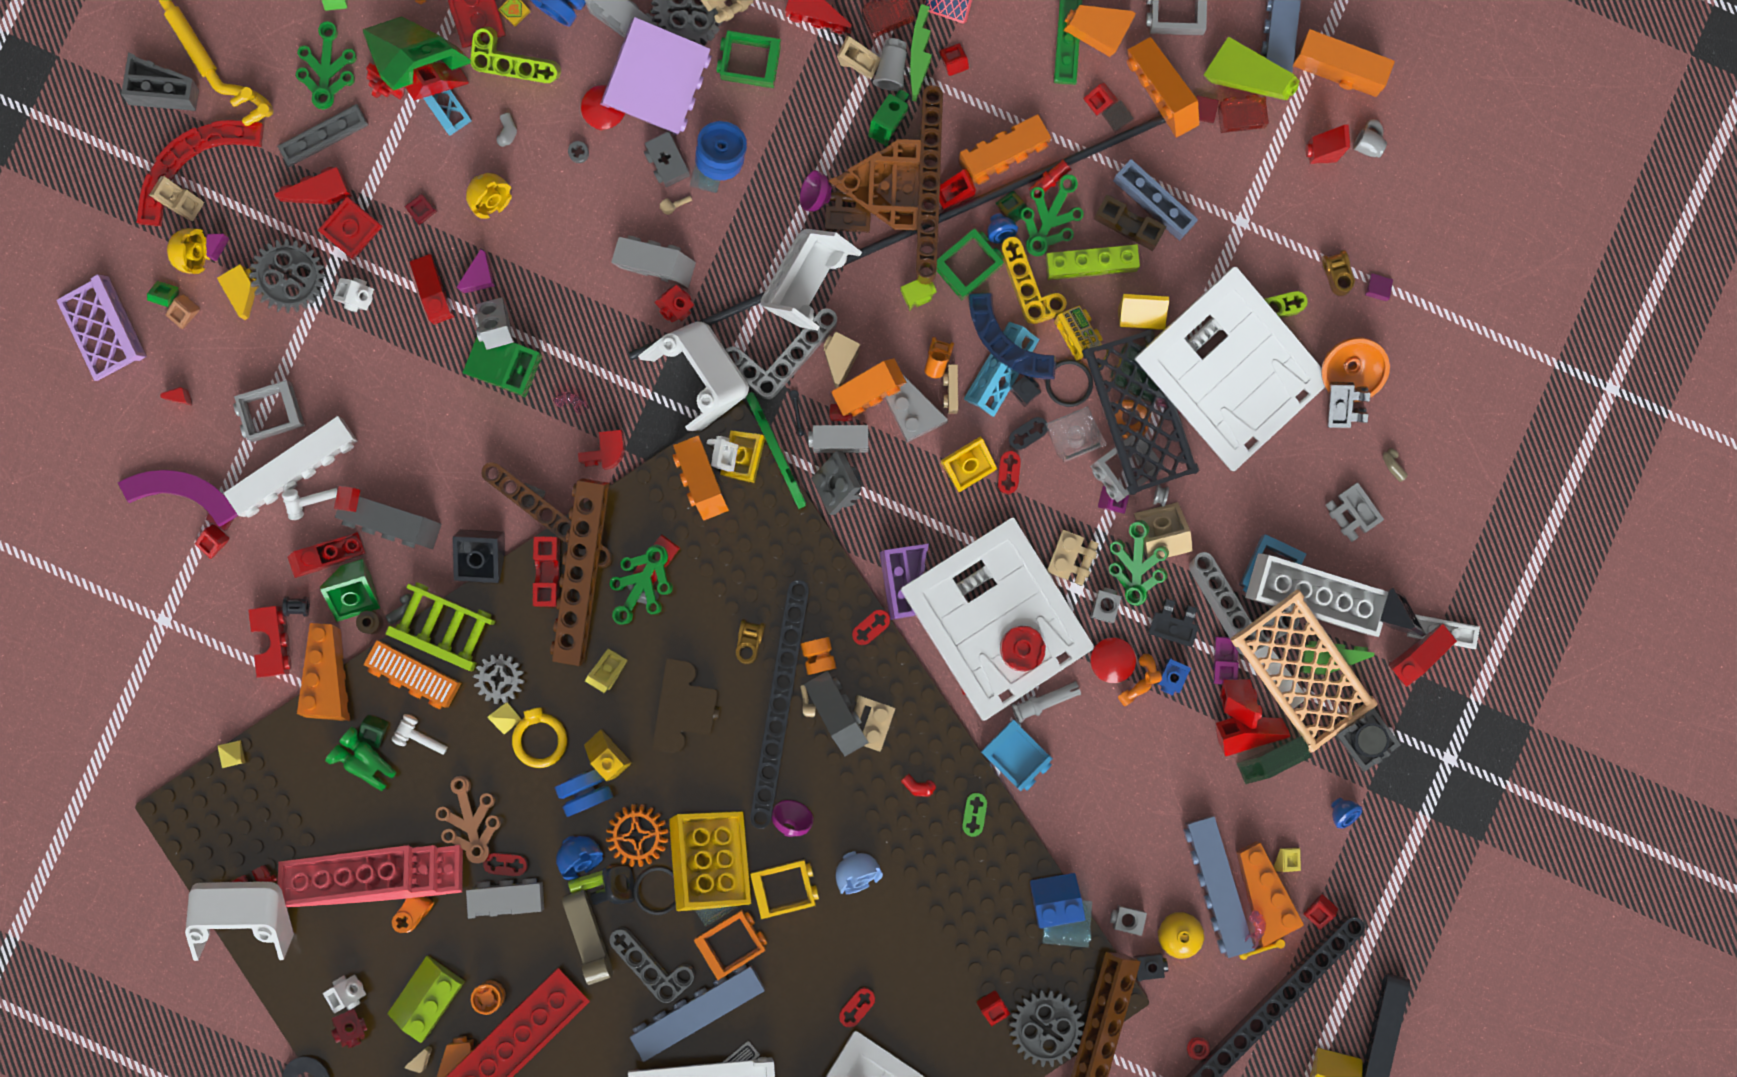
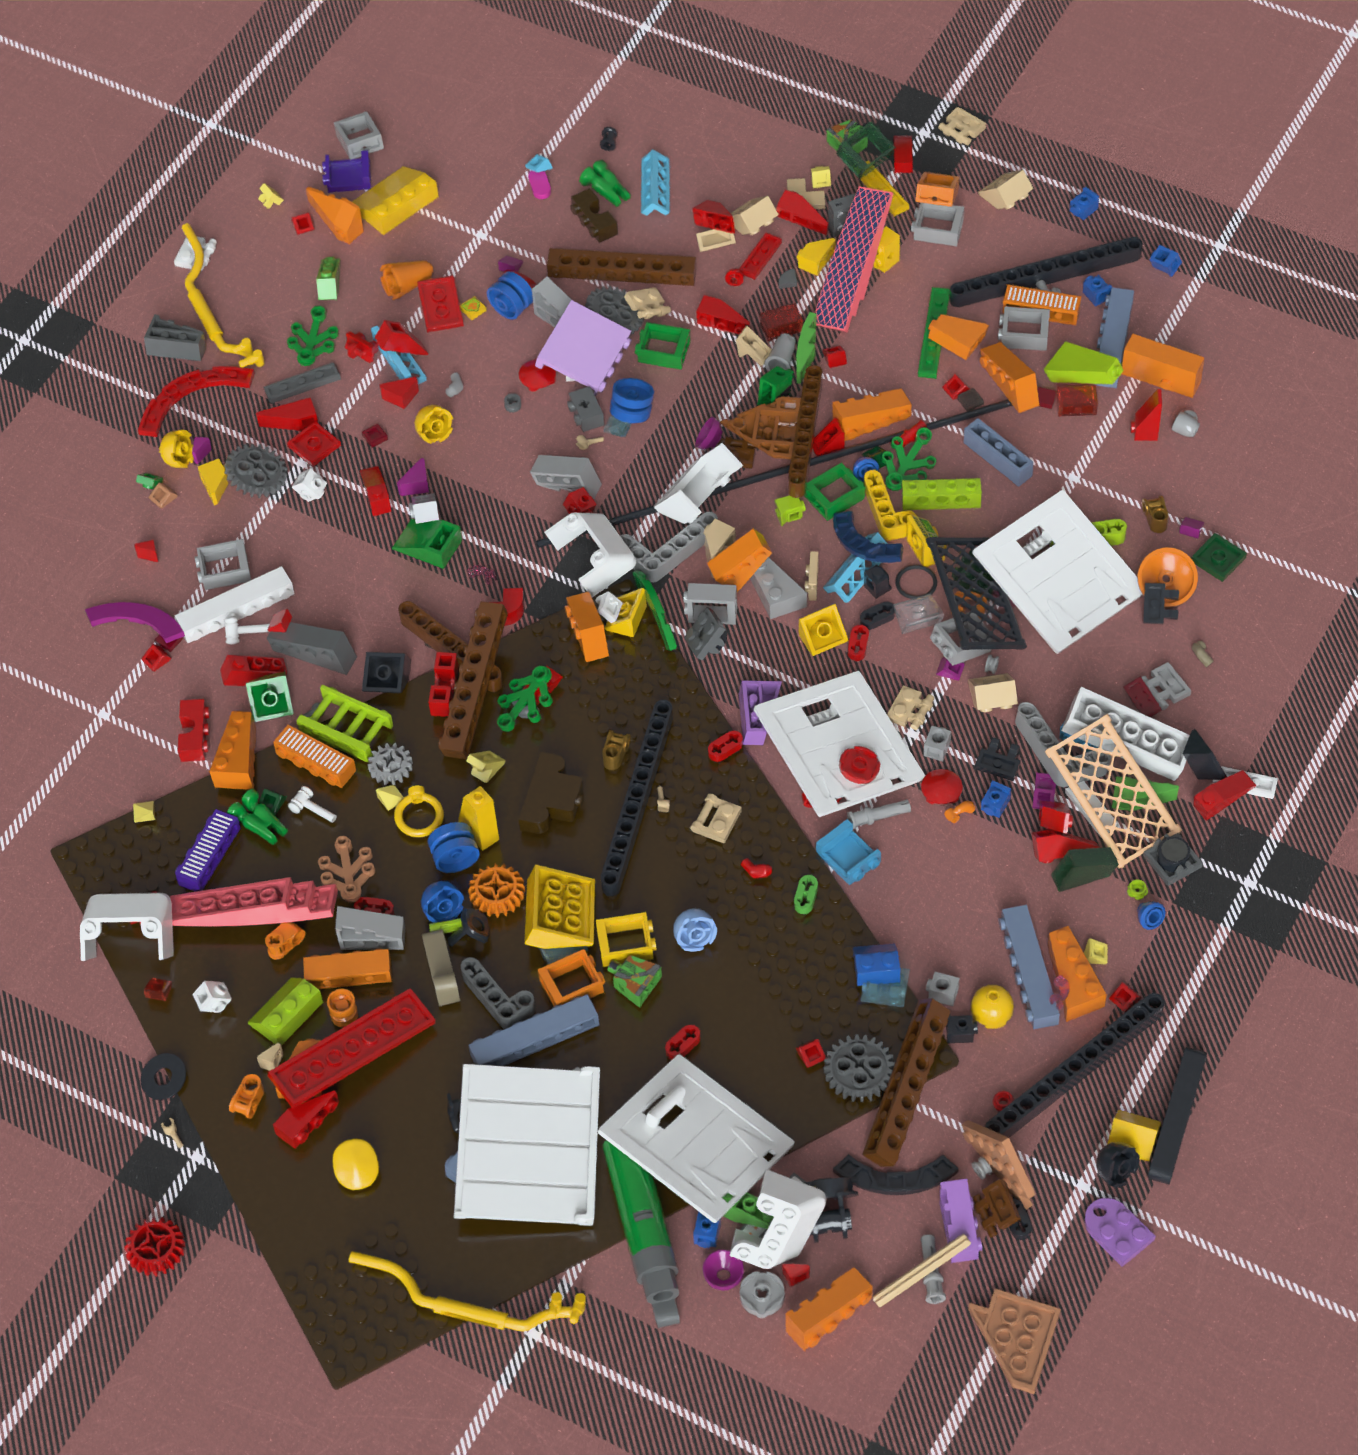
camera: 10 degrees right, 30 degrees down
(114, 314) = (106, 492): lavender fence -> none
(176, 199) = (173, 416): tan slope -> none
(283, 980) = (157, 989): none -> clear red slope
(296, 606) = (220, 706): black bush -> none
(310, 807) = (207, 851): none -> dark purple brick
(348, 1020) = (210, 1024): dark red brick -> none
(376, 622) = (282, 717): dark brown brick -> none
(404, 45) = (373, 319): green wedge -> none
(444, 146) = (400, 391): none -> red slope
(487, 945) = (348, 969): none -> orange brick
(516, 61) = (470, 336): lime beam -> none
(636, 895) = (509, 953): black tyre -> none
(794, 395) = (675, 579): black hinge -> none
(794, 814) = (637, 884): magenta piece -> none
(798, 935) = (635, 978): none -> torso
(818, 656) = (676, 760): orange wheel -> none
(835, 712) = (689, 800): dark grey wedge -> none
(938, 357) = (801, 552): orange piece -> none
(1136, 565) = (968, 710): green plant -> none
(1138, 229) = (961, 462): dark brown arch -> none
(1143, 311) = (982, 521): yellow slope -> none
(1152, 676) = (974, 790): orange arm -> none
(1279, 944) = (1085, 1022): yellow hinge -> none
(1330, 531) = (1142, 697): none -> dark red plate
(1334, 774) = (1137, 885): none -> lime plate
(1411, 331) = (1218, 557): none -> dark green plate

